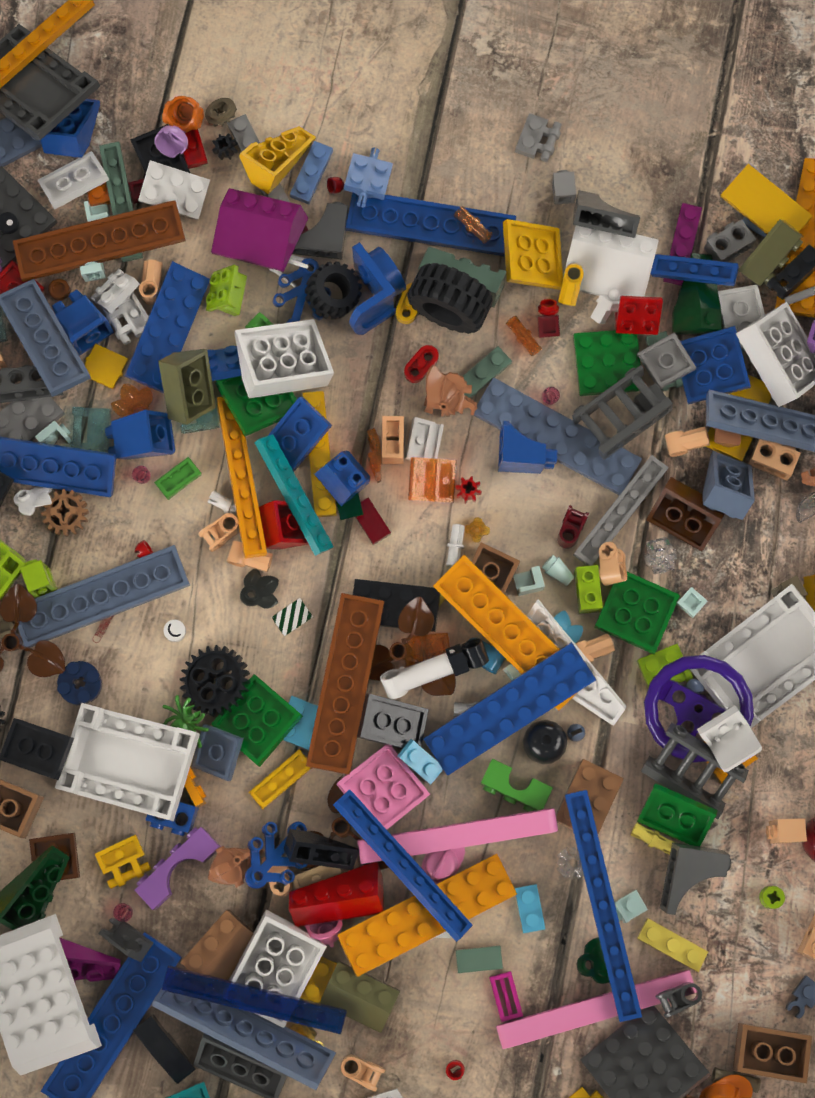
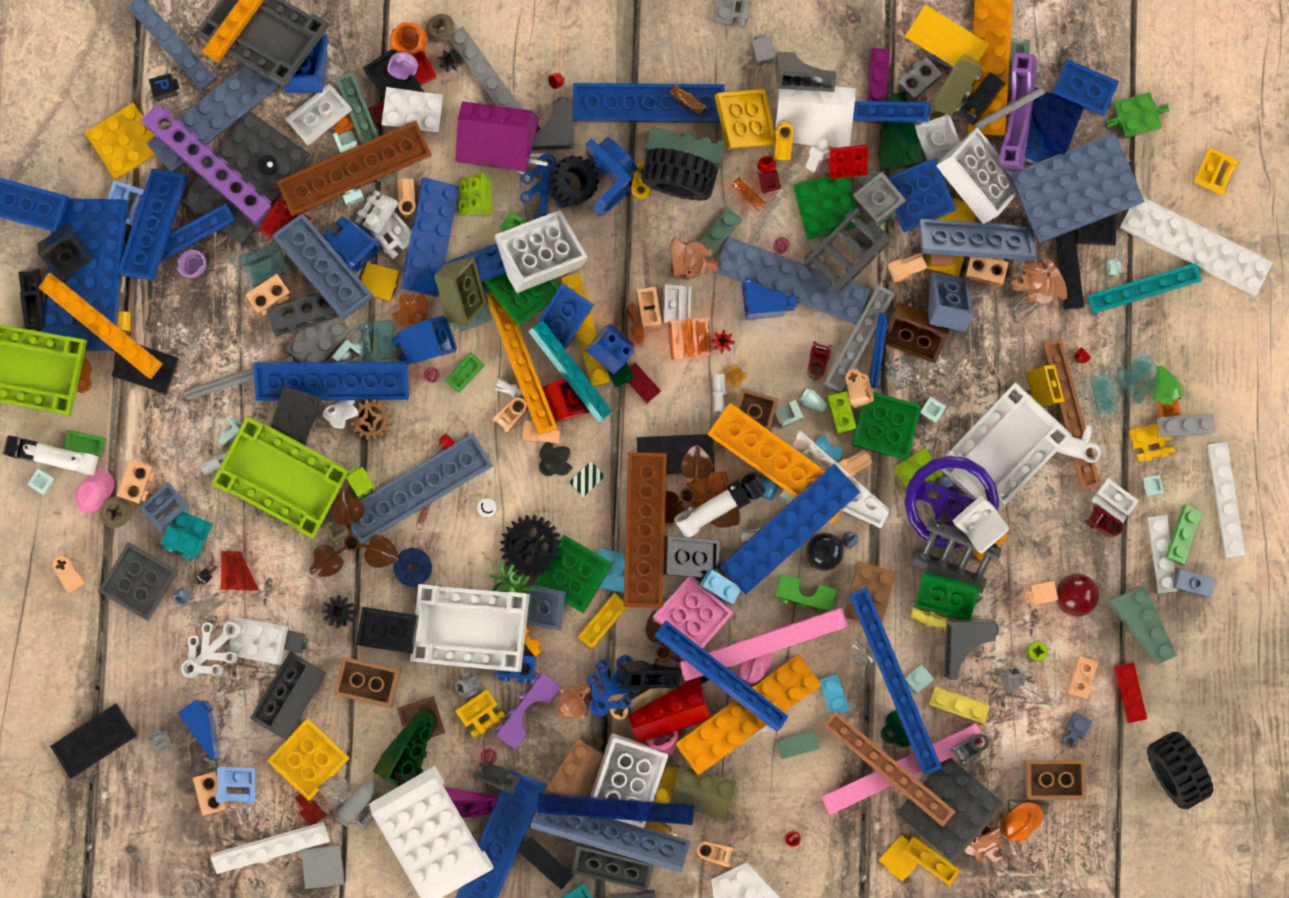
camera: 15 degrees left, 5 degrees up
(59, 289) = (324, 217): dark orange tile -> none
(113, 826) = (467, 685): none -> light grey gear
(275, 157) = (495, 67): yellow wedge -> none
(311, 172) = (532, 71): medium blue plate -> none
(368, 176) = (585, 69): medium blue plate -> none
(420, 364) = (661, 234): red plate -> none
(500, 977) = (832, 786): dark pink tile -> none
(581, 1008) = (889, 769): none -> nougat plate
(640, 526) = (878, 350): none -> blue axle
(739, 925) = (1013, 679): none -> light grey gear

